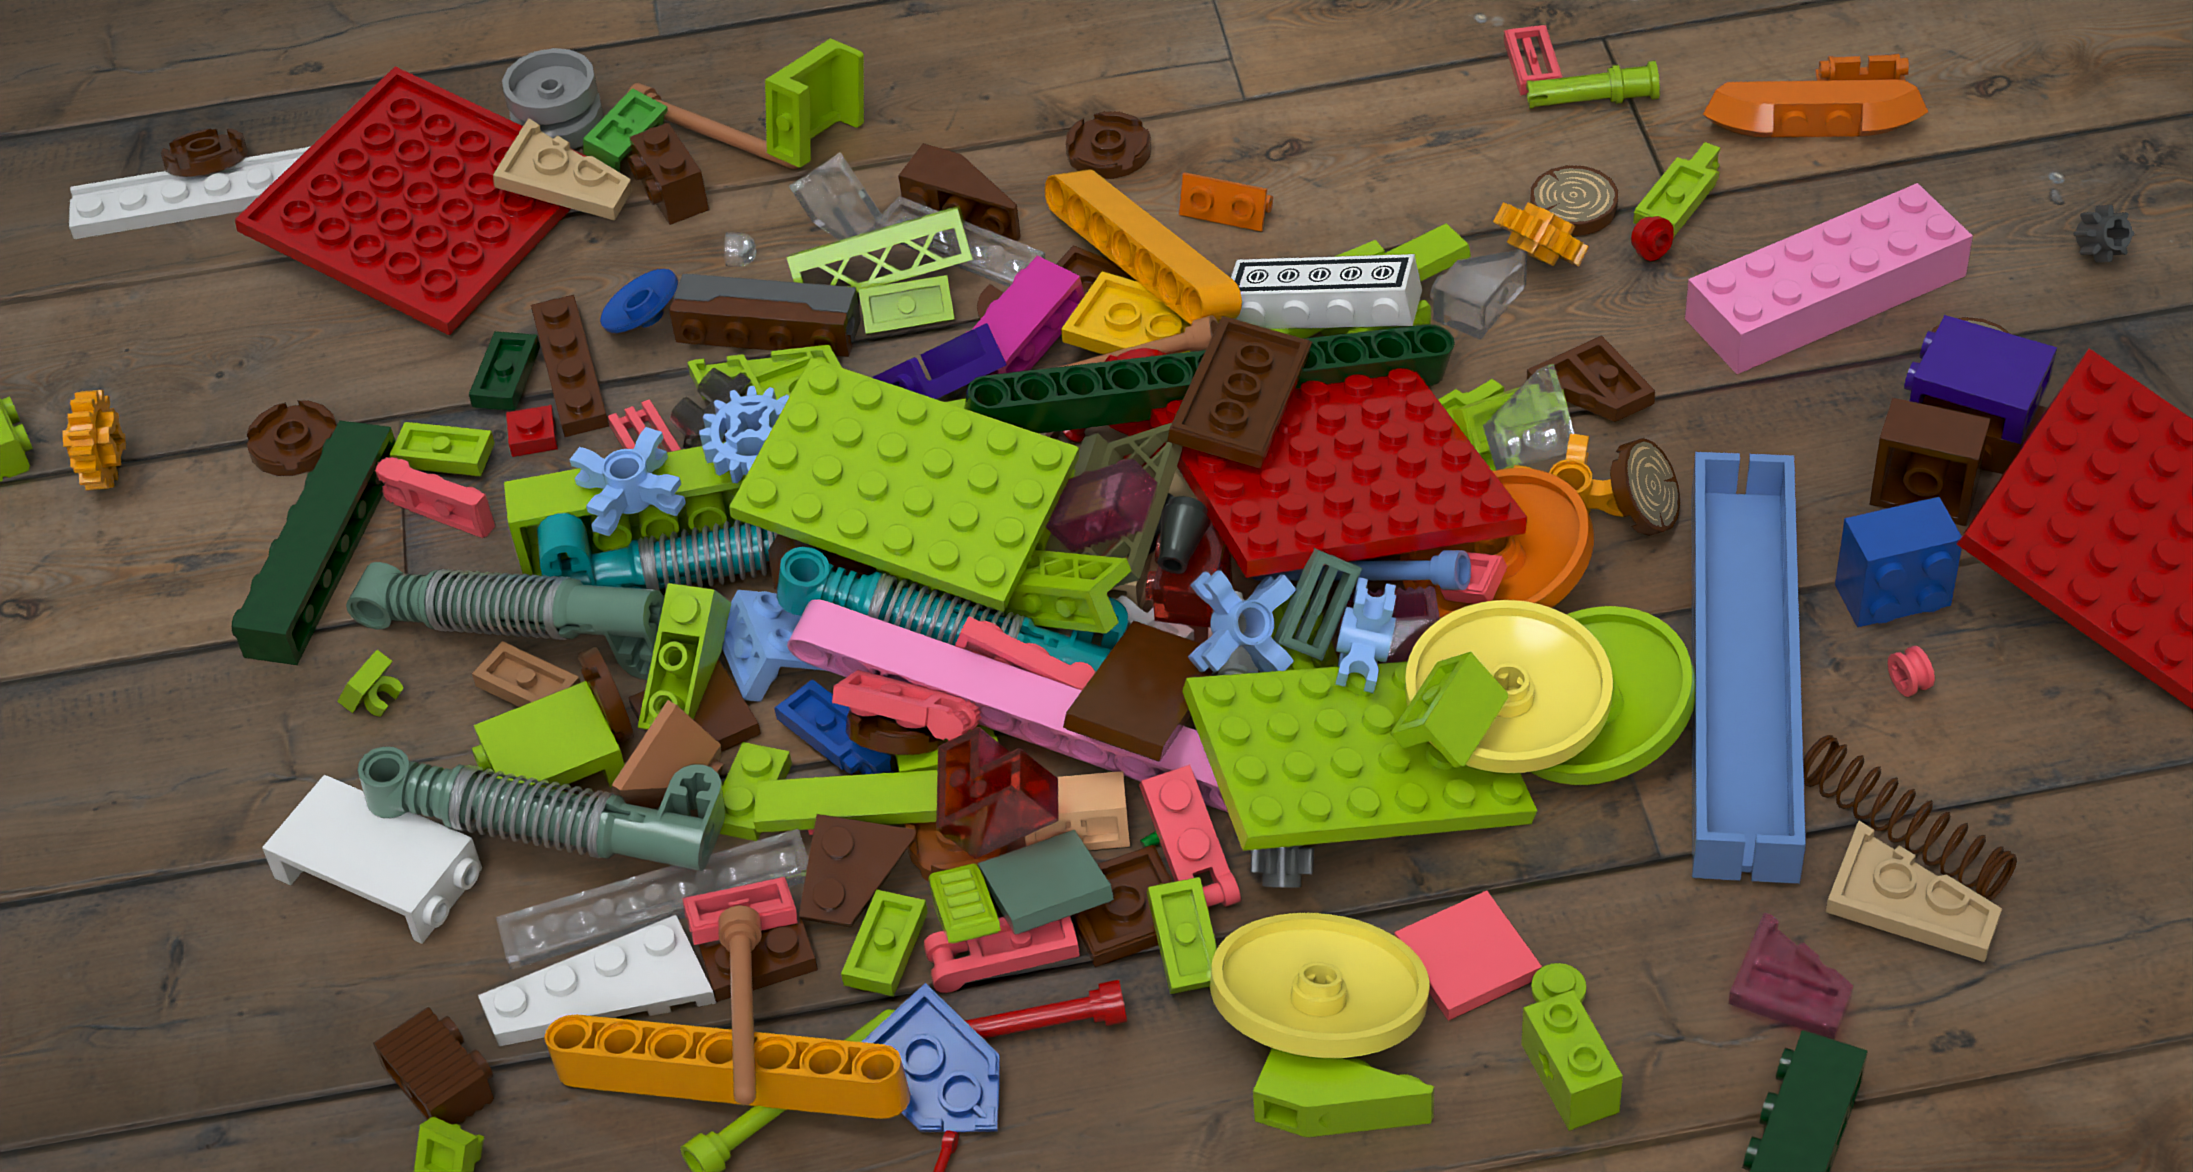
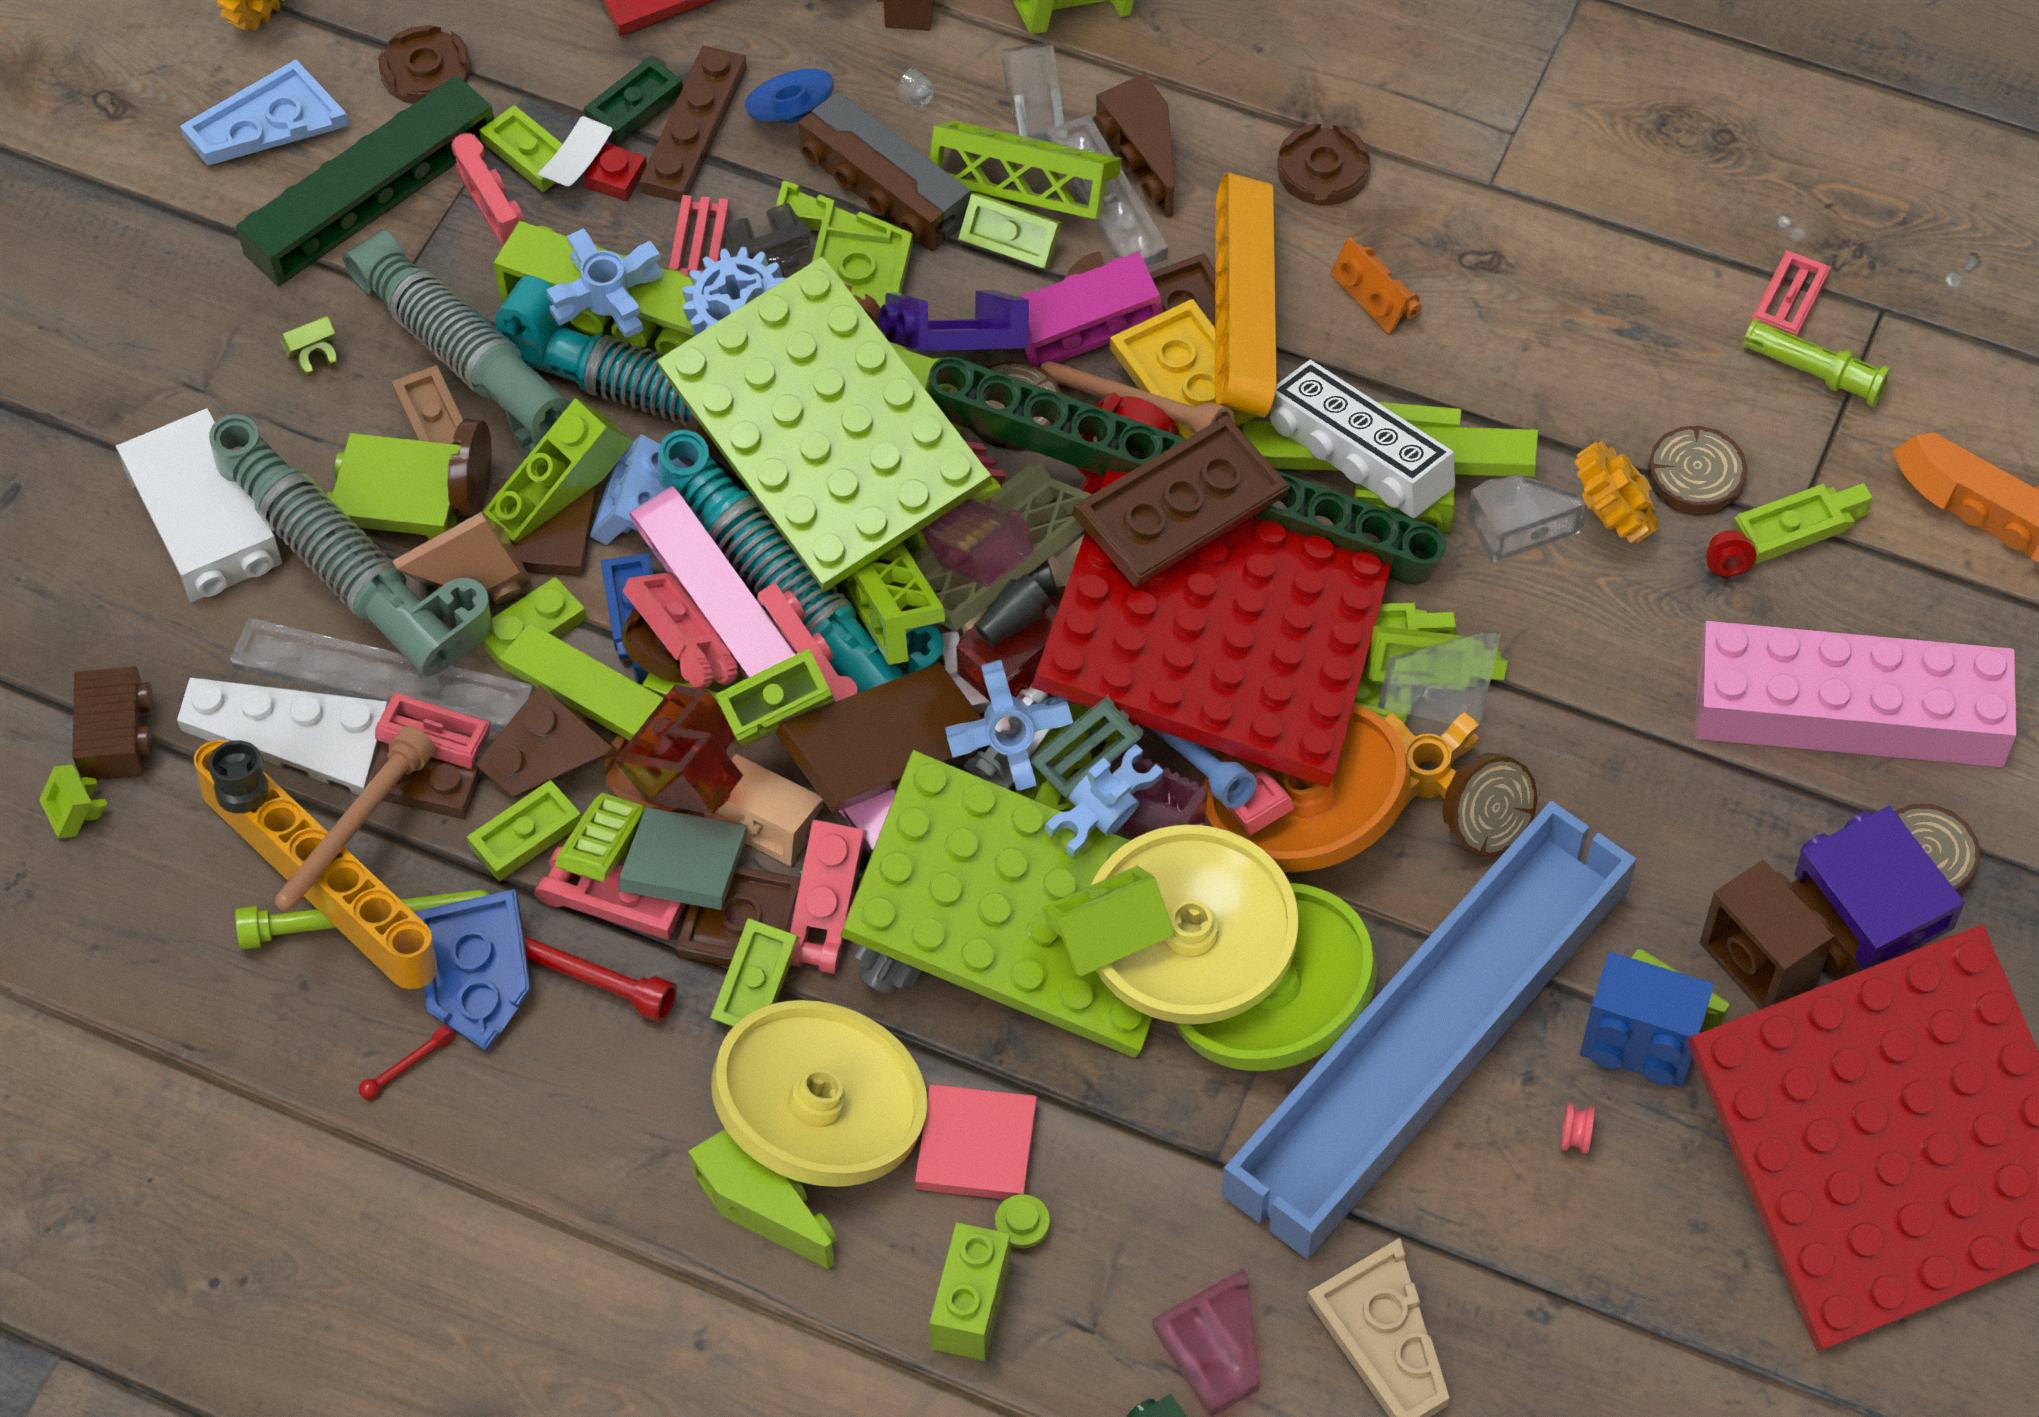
camera: 30 degrees right, 10 degrees up
(179, 541) = (264, 115): none -> light blue wing
(491, 426) = (576, 152): none -> white sticker
(612, 1027) = (238, 776): none -> pearl dark grey wheel
(1043, 699) = (773, 696): none -> lime brick
(1600, 380) = (1550, 668): reddish brown wing -> none
(1988, 870) = (1465, 1354): reddish brown piece -> none

